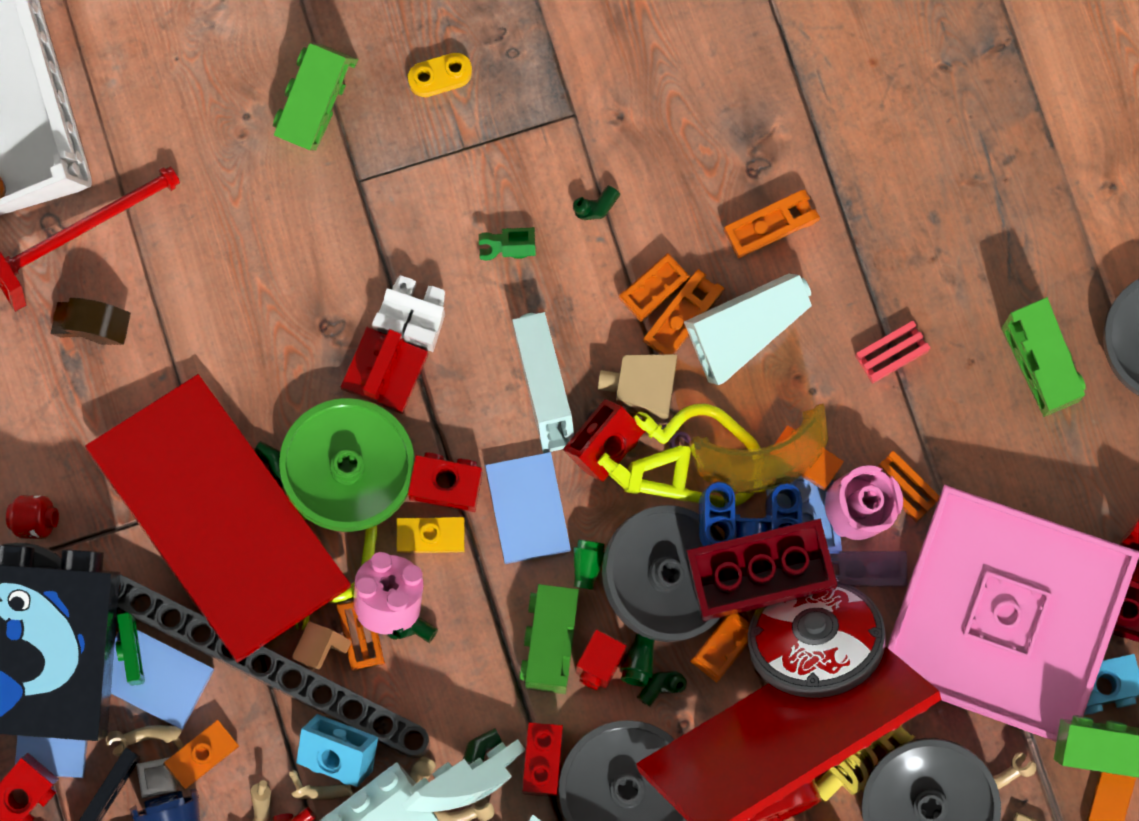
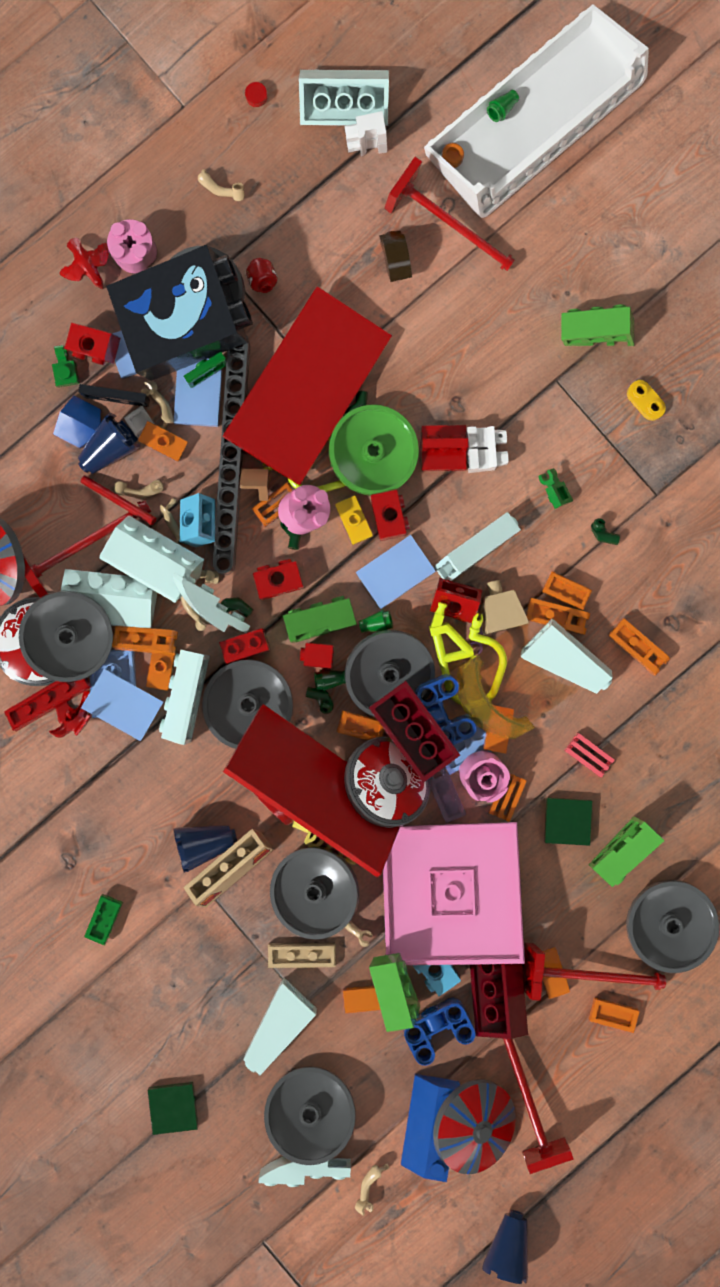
camera: 75 degrees right, 10 degrees up
(475, 694) = (291, 583): none -> red brick
(972, 418) = (568, 821): none -> dark green tile

